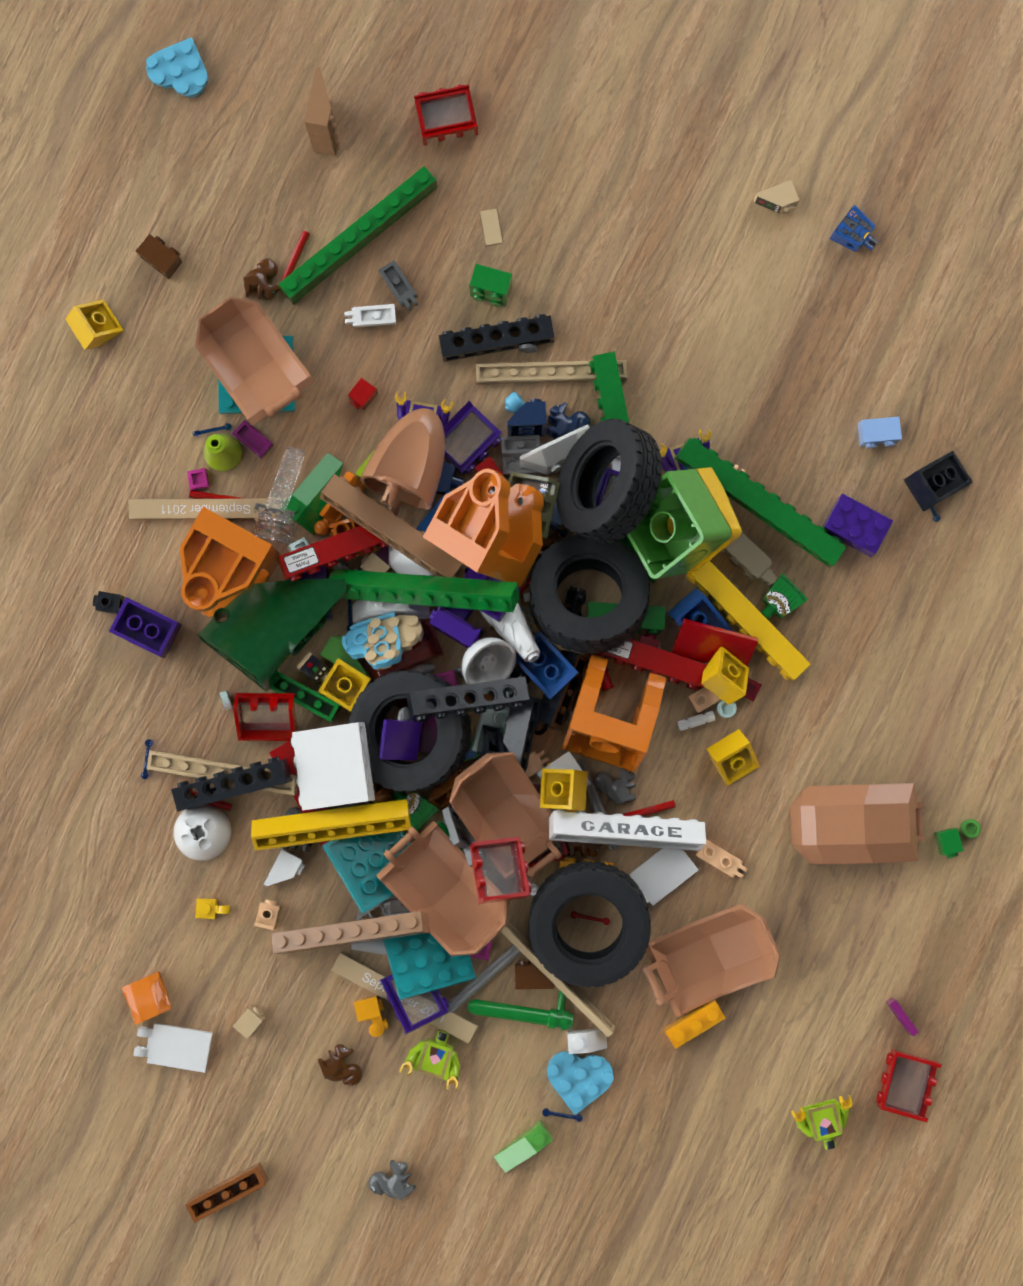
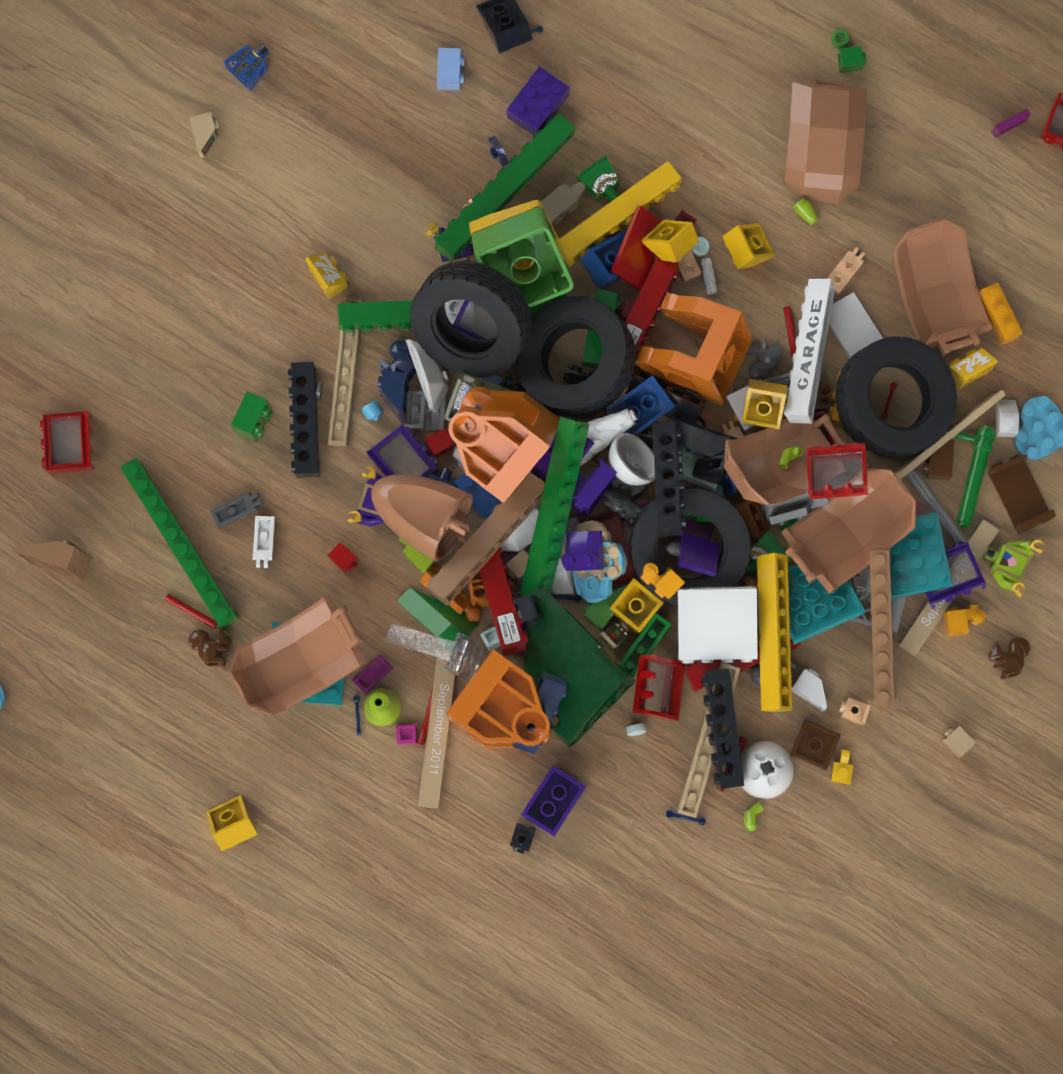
camera: 80 degrees left, 5 degrees down
(147, 998) = (926, 841): orange slope -> none
(154, 822) = (750, 816): none -> lime arm
(159, 256) = (169, 747): reddish brown brick -> none
(175, 1047) = (976, 818): white tile -> none
(230, 878) = (815, 744): none -> reddish brown plate
(242, 608) = (550, 691): none -> dark blue arch
(322, 577) = (529, 609): none -> black brick
(363, 709) = (665, 584): none -> light orange brick
(389, 625) = (583, 551): none -> dark purple slope
(445, 658) = (624, 506): none -> dark grey animal
(491, 226) = (186, 413): tan sticker -> none
(508, 1062) = (1020, 494): none -> reddish brown panel
(515, 821) = (790, 454): none -> lime arm
(633, 999) = (972, 367): none -> yellow slope
(646, 338) = (326, 274): none -> yellow slope
(778, 812) = (806, 211): none -> lime cone
(796, 490) = (497, 151): none -> clear blue plate

